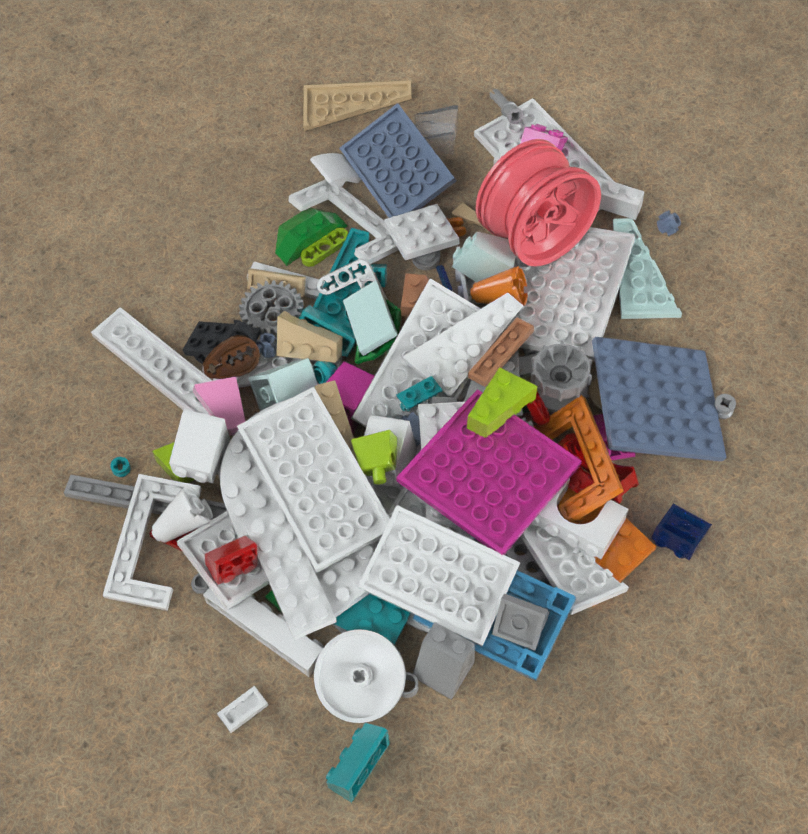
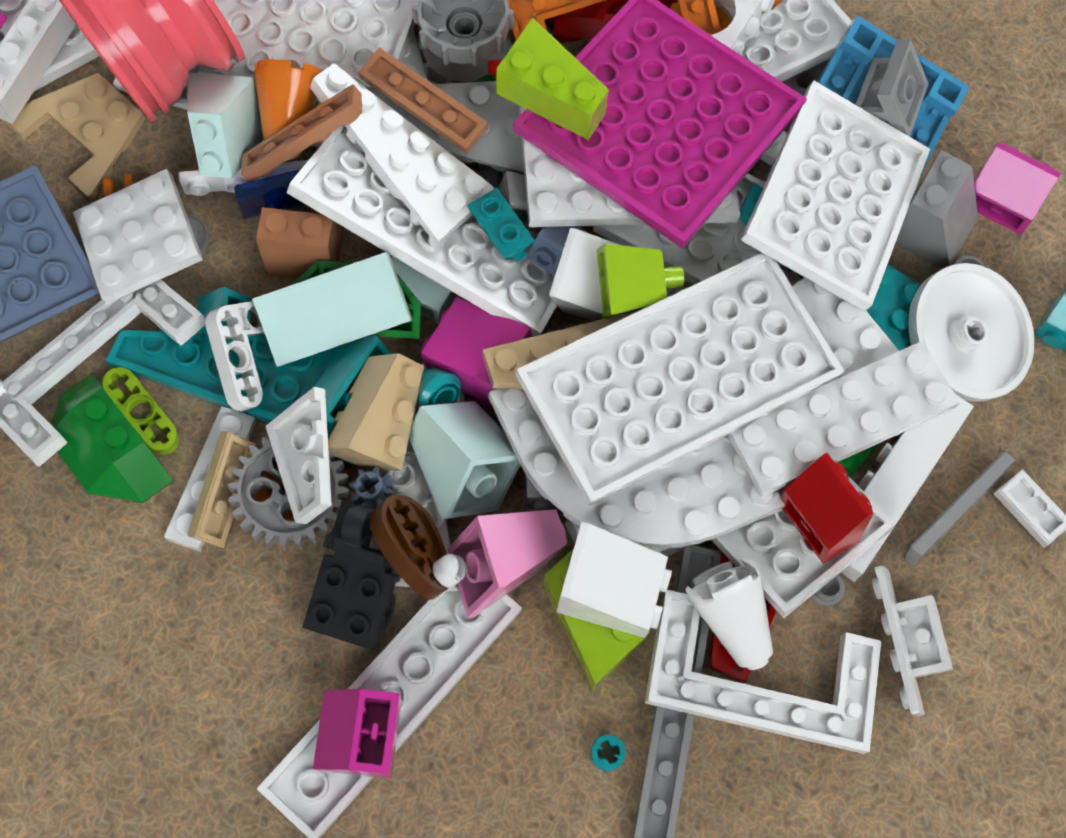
camera: 100 degrees left, 10 degrees up
(137, 345) = (358, 732): none -> dark pink slope
(165, 626) = (916, 638): none -> white bracket
(215, 371) = (449, 570): none -> white hinge
(244, 661) = (958, 508): none -> light grey tile
(279, 304) = (302, 454): none -> white wing
(465, 712) = (1012, 187): none -> slope
(472, 290) = (309, 129): none -> nougat plate

